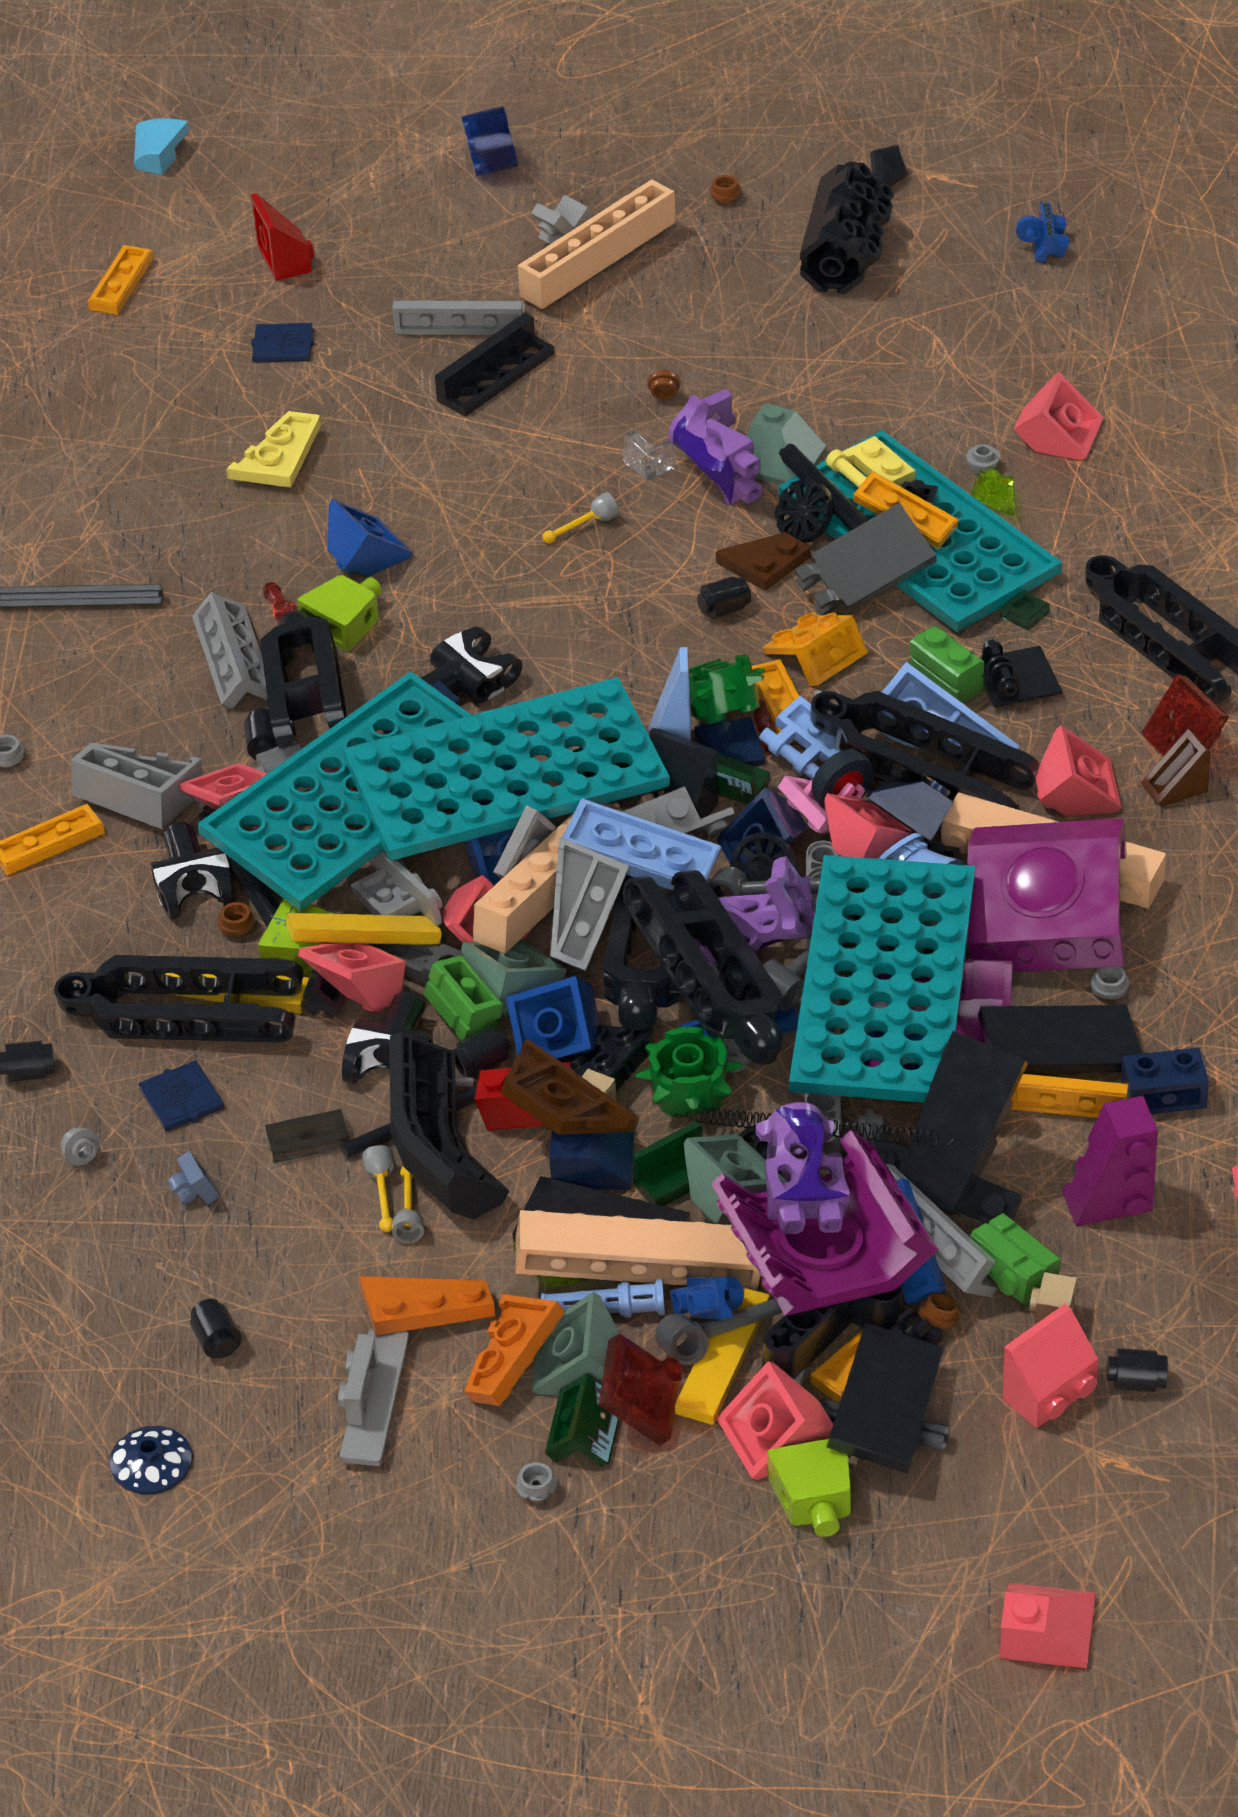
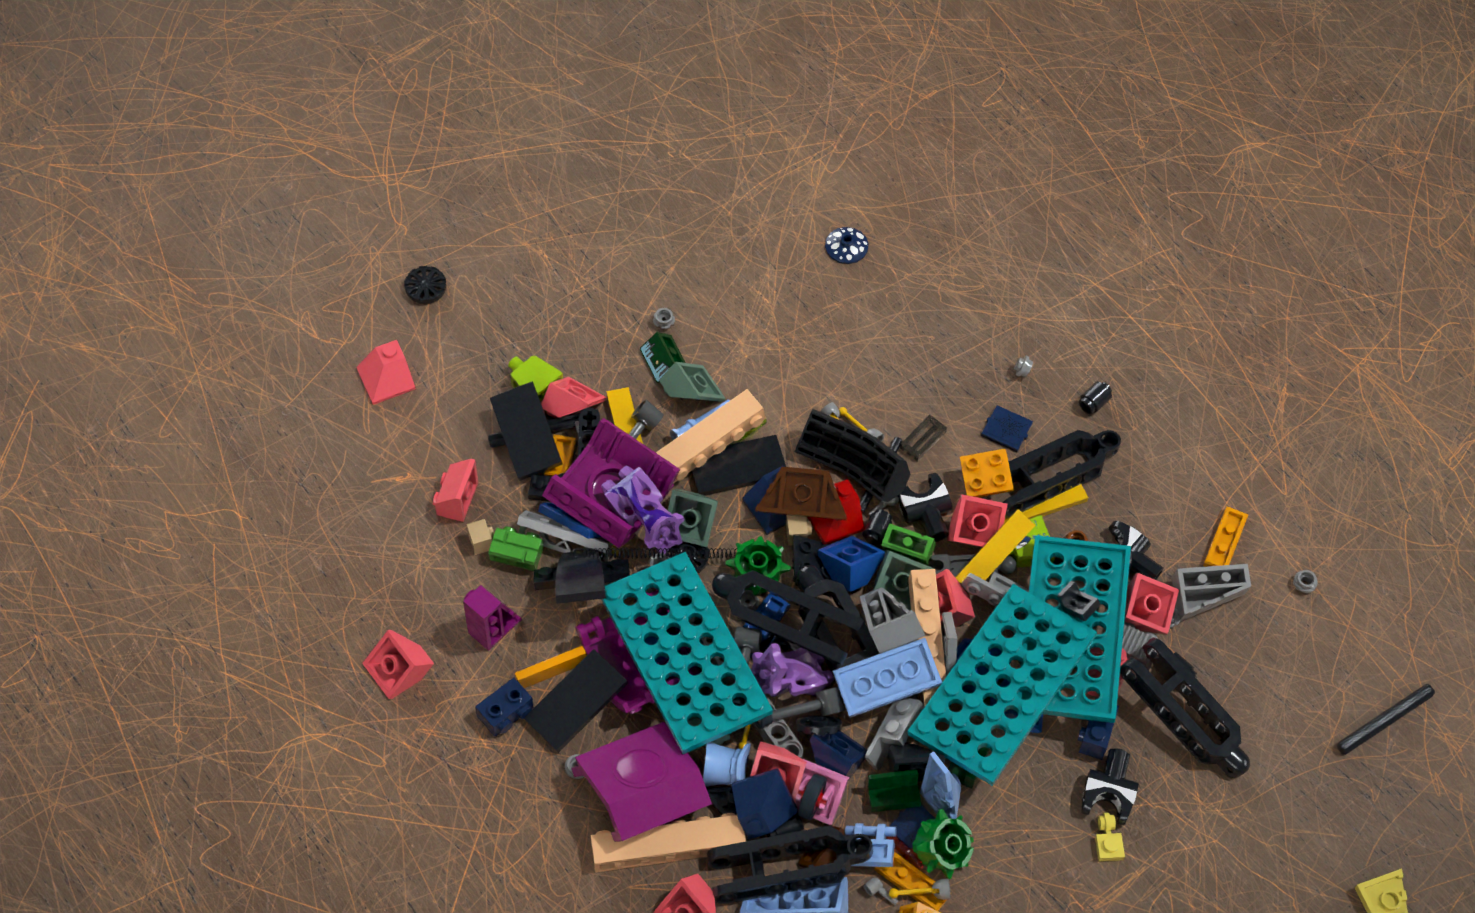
camera: 140 degrees right, 15 degrees up
(192, 1181) = (950, 378): sand blue tile -> none
(215, 1328) = (871, 310): black brick -> none
(230, 649) = (1265, 723): light grey fence -> none
(280, 605) = (1259, 778): clear red piece -> none
(286, 1018) = (986, 473): none -> light orange bracket
(333, 783) = (1076, 602): none -> black bracket
(347, 607) = (1222, 792): lime torso -> none
(362, 541) = (1264, 859): blue slope -> none
(371, 1395) = (773, 318): light grey bracket -> none
(419, 1303) = (788, 375): orange wing -> none
(512, 1348) = (724, 370): orange wing -> none
(517, 632) = (1109, 844): none -> light yellow plate
(646, 1384) = (641, 378): clear red plate -> none
(661, 1167) = (726, 513): dark green panel -> none
(708, 1297) = (640, 427): blue hips -> none
(762, 659) = (940, 890): none -> hinge
(881, 1741) = (425, 284): none -> black wheel
(939, 1310) = (530, 500): dark orange plate -> none
(1137, 1370) = (417, 522): black brick -> none

